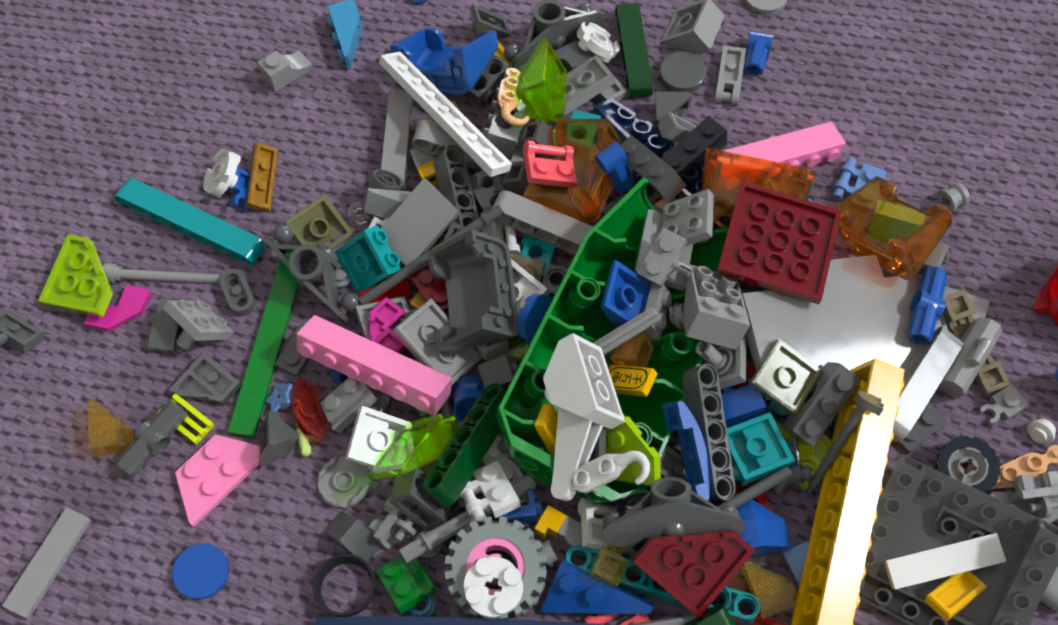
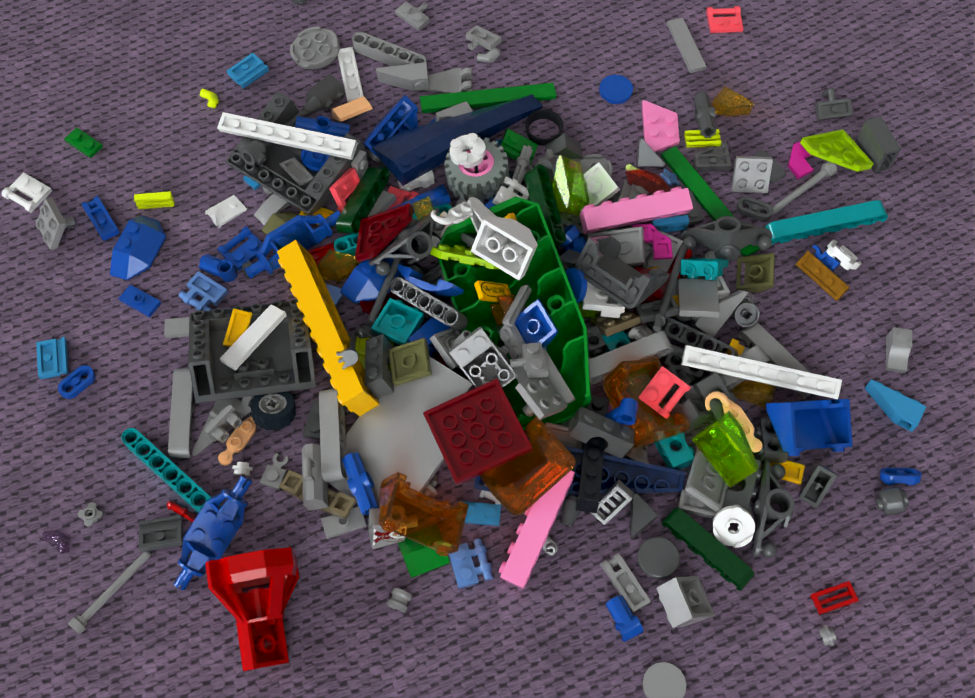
camera: 135 degrees right, 0 degrees up
(35, 246) = (878, 144): none -> dark grey brick

